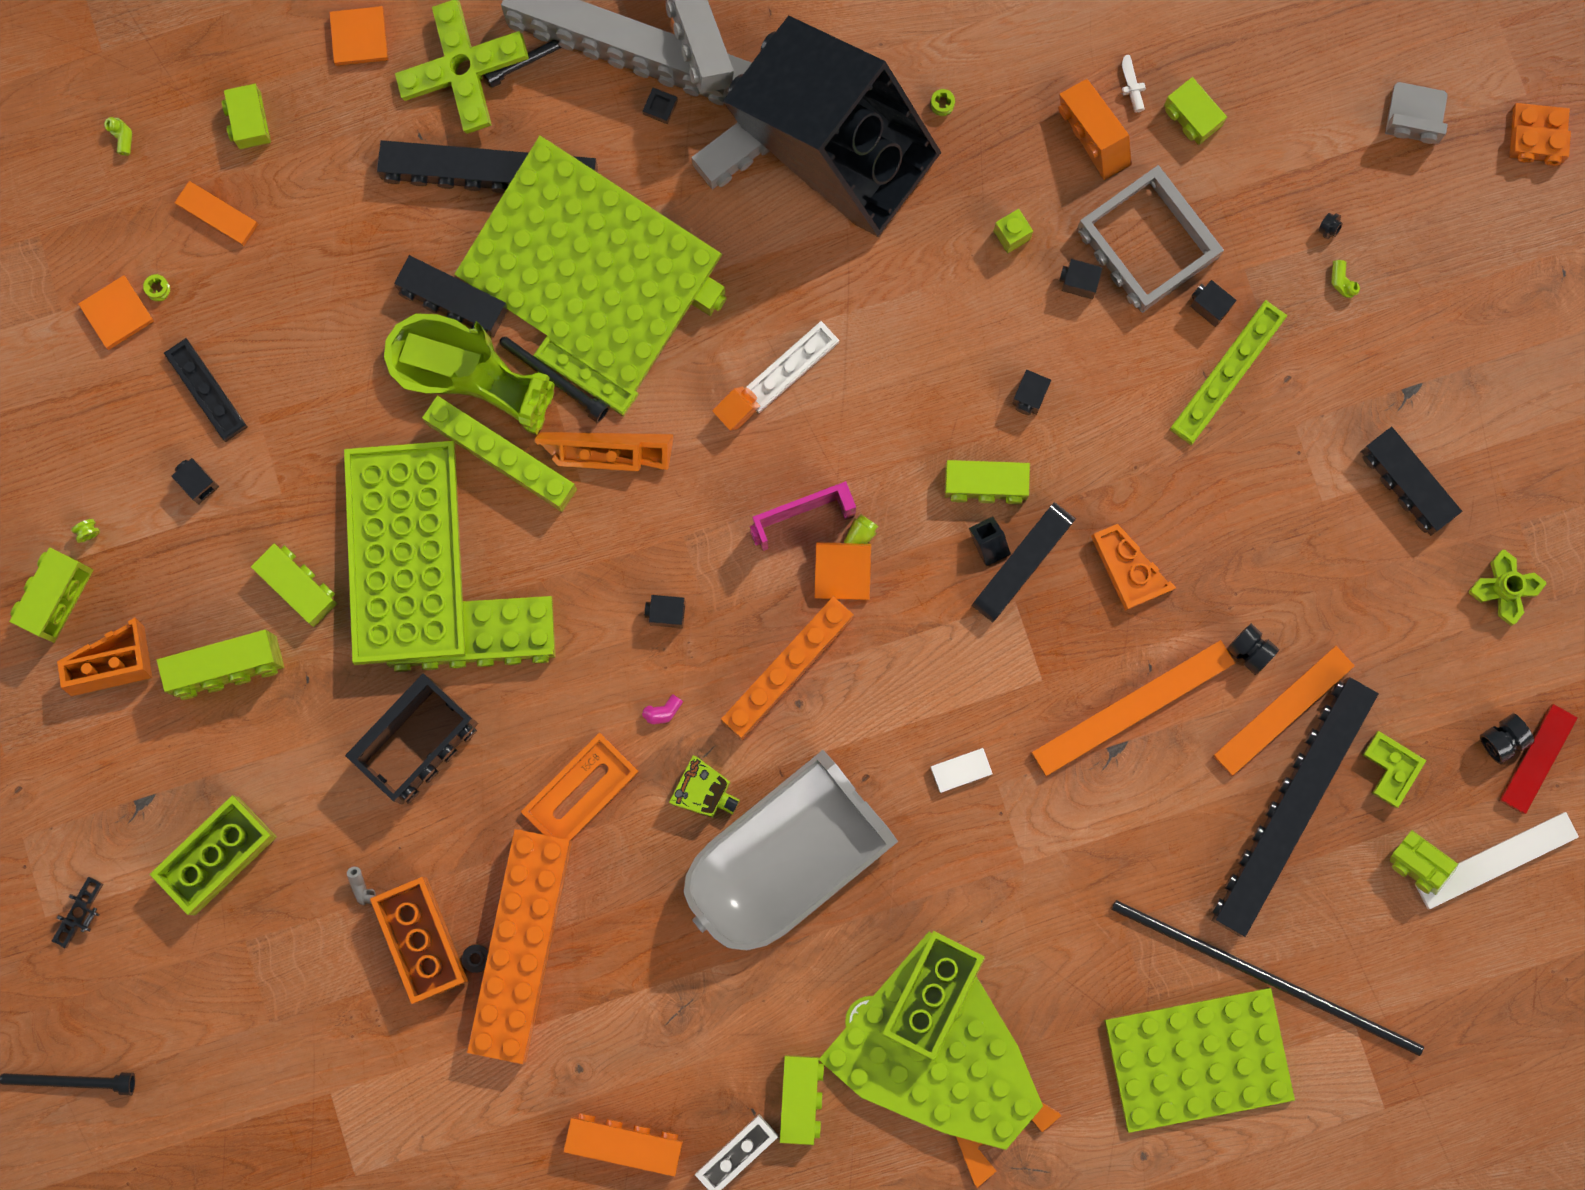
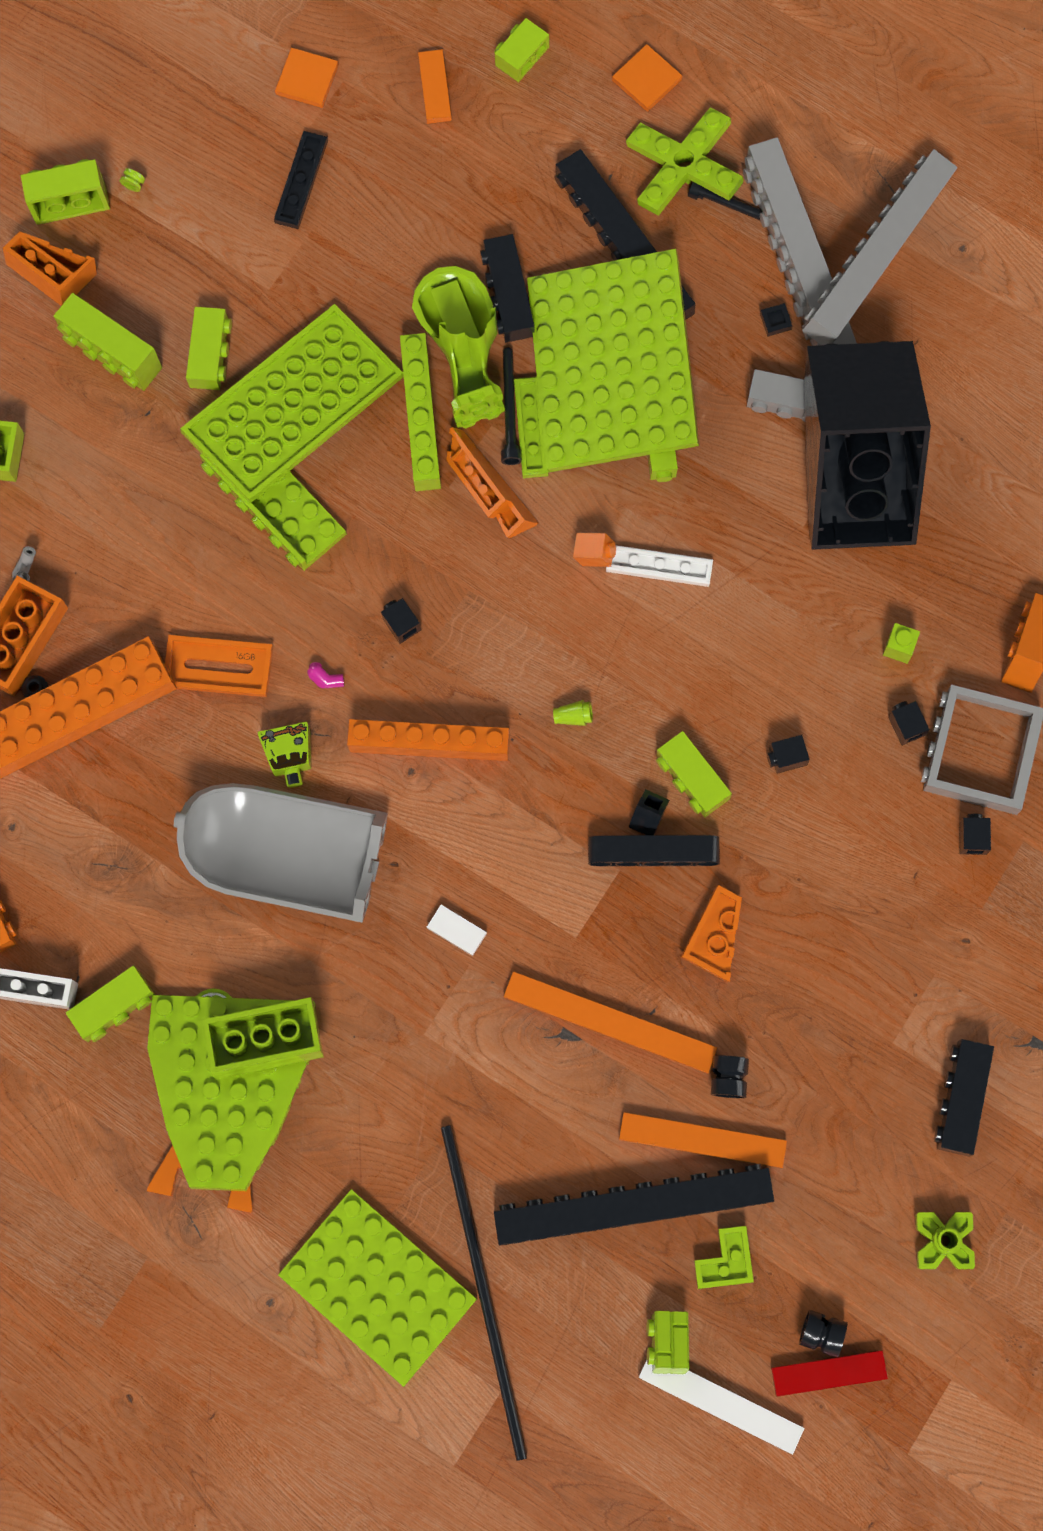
camera: 55 degrees right, 5 degrees down
(158, 296) = (344, 97): lime bush -> none
(194, 480) = (228, 223): black brick -> none
(392, 721) = (162, 491): black hose -> none
(838, 492) = (556, 651): dark pink panel -> none
(842, 571) = (536, 722): orange tile -> none
(949, 99) = (958, 508): lime bush -> none
(1228, 372) = (932, 891): lime tile -> none

